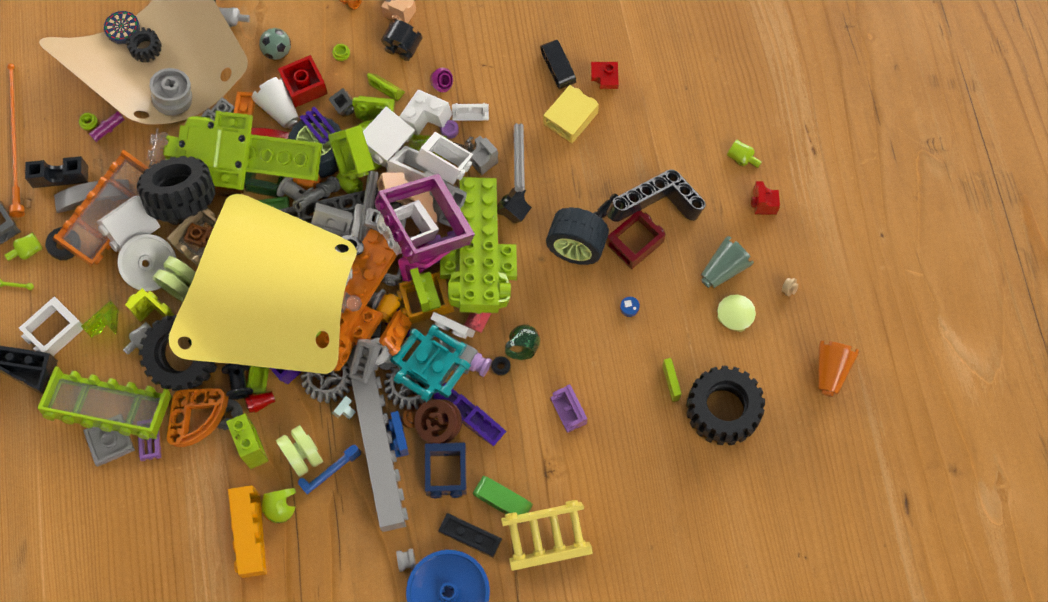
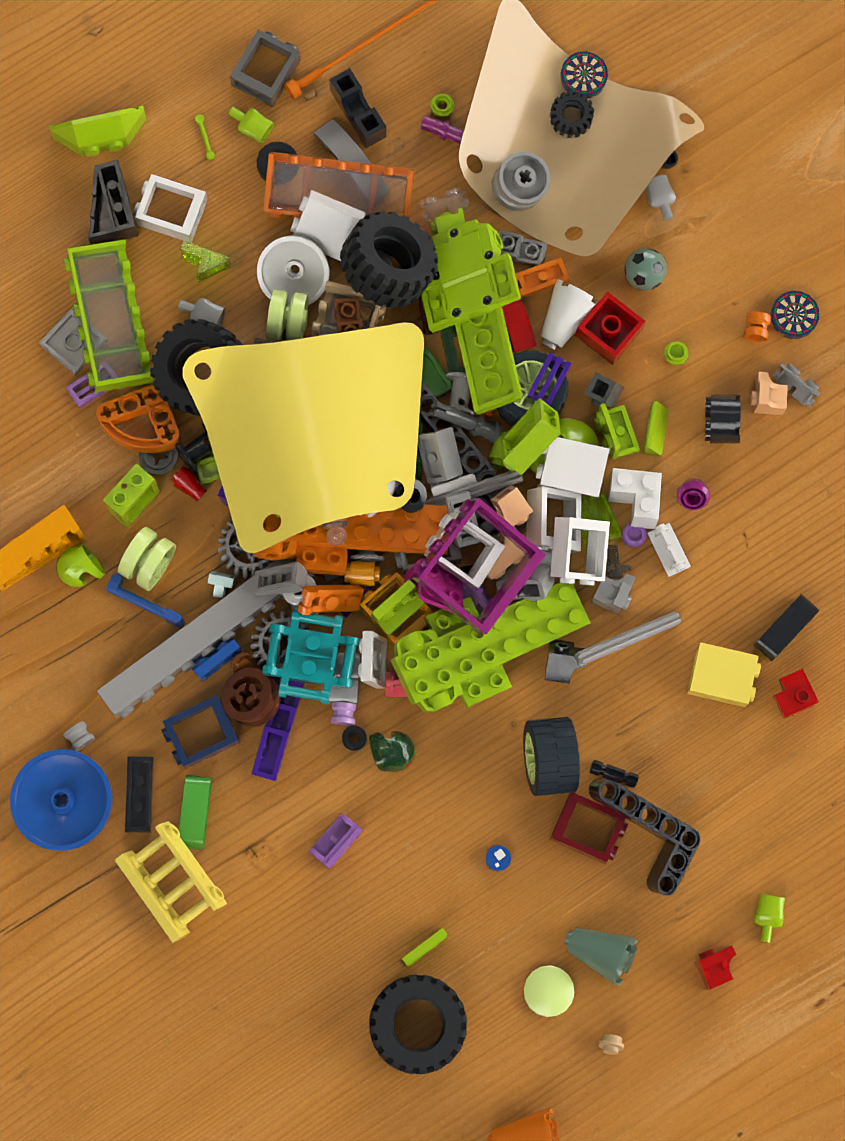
camera: 60 degrees right, 10 degrees up
(144, 303) = (239, 293): neon yellow bracket -> none

